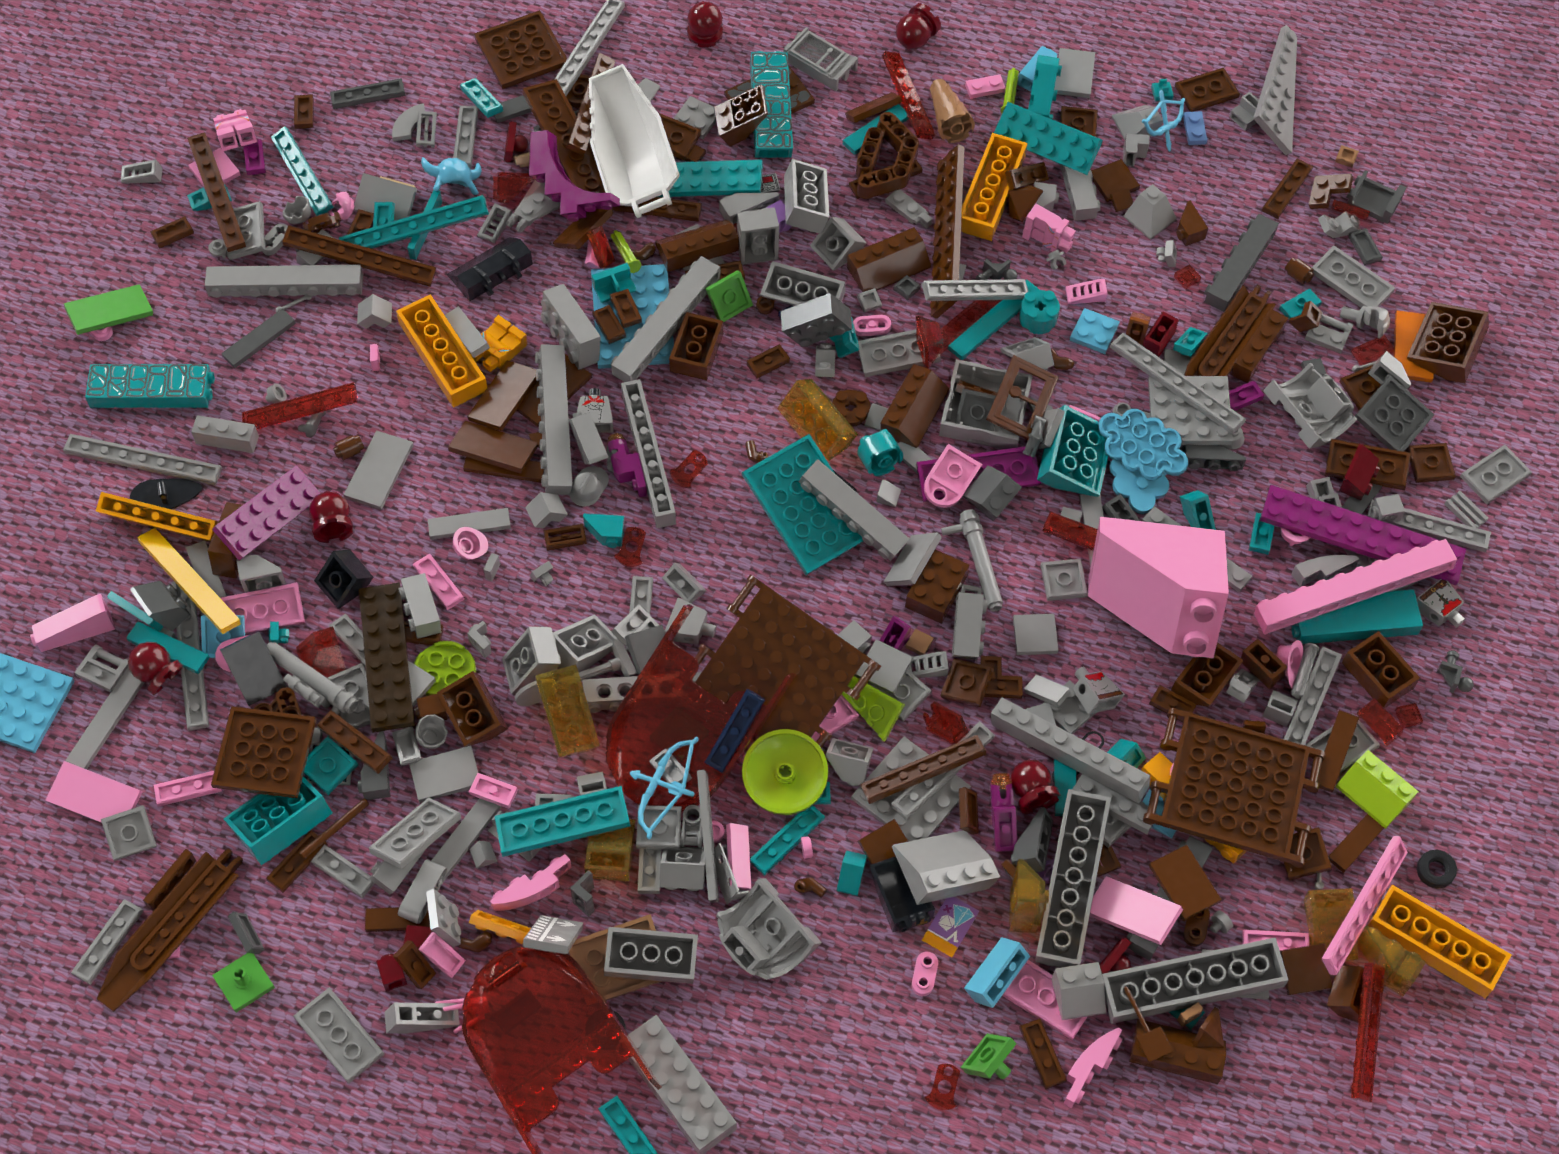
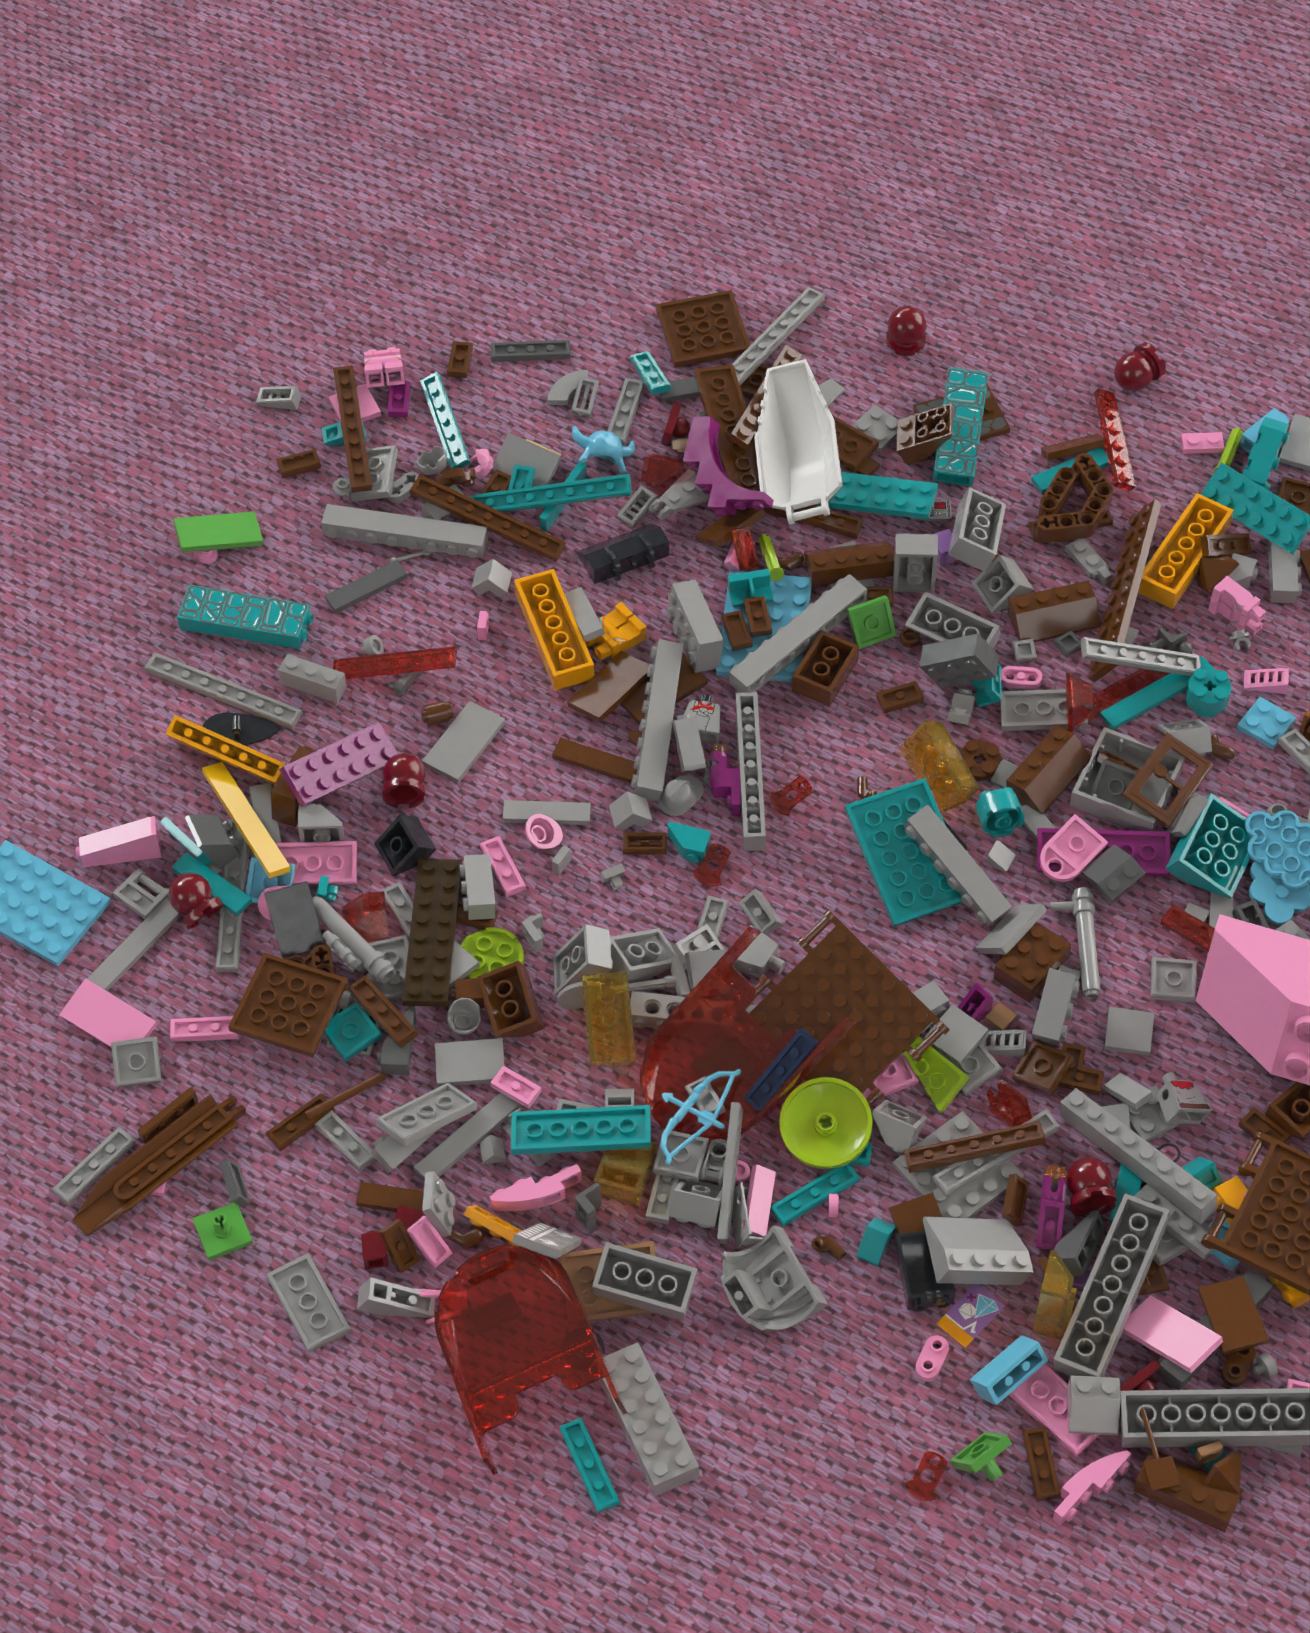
camera: 15 degrees right, 5 degrees down
(274, 822) = (285, 1077): teal slope -> none
(406, 746) = (435, 1026): light grey tile -> none
(415, 902) = (411, 1185): light grey beam -> none
(493, 447) = (588, 737): reddish brown tile -> none
(740, 202) = (910, 525): light grey slope -> none
(820, 59) = (1024, 386): light grey door -> none
(951, 114) = (1156, 465): medium nougat cone -> none
(1035, 436) = (1172, 821): dark grey piece -> none

